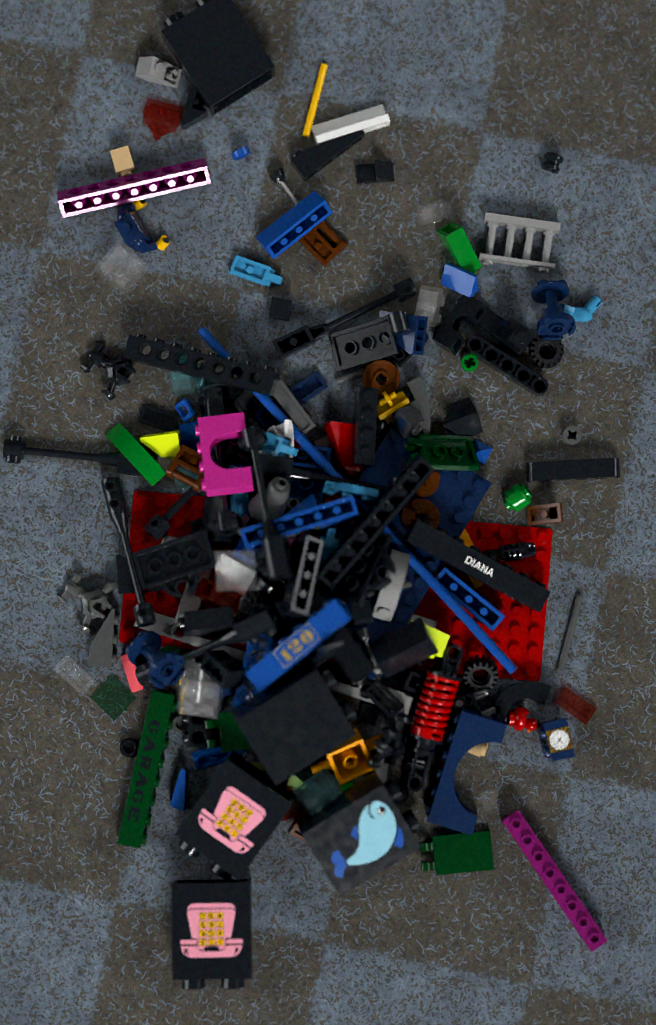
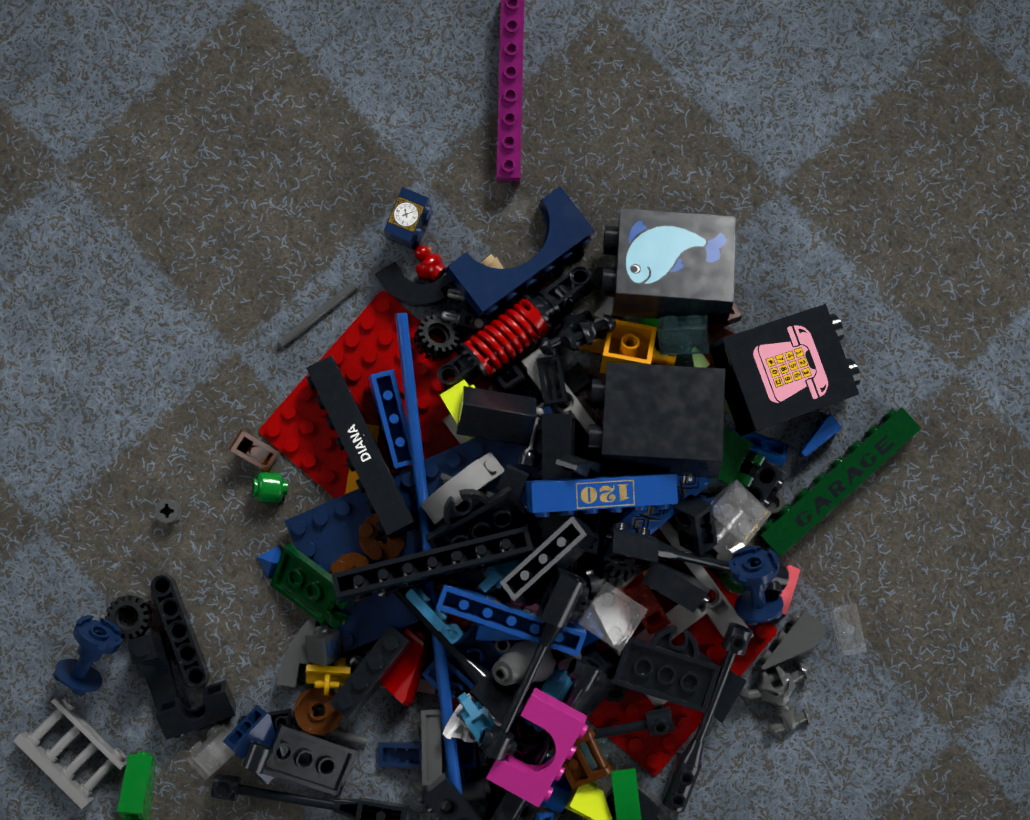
camera: 145 degrees left, 0 degrees up
(113, 697) = (822, 578): clear green piece -> none
(129, 747) = (841, 516): black plate -> none
(212, 932) = (886, 274): black brick -> none
(459, 280) = (161, 756): slope -> none
(459, 853) = (584, 179): dark green tile -> none
(463, 418) = (264, 608): black slope -> none
(466, 358) = (215, 669): green bush -> none
(512, 551) = (314, 436): black hinge -> none
(573, 469) = (192, 475): black beam -> none
(575, 705) = (365, 240): clear red tile -> none
(584, 313) = (59, 627): dark azure arm -> none

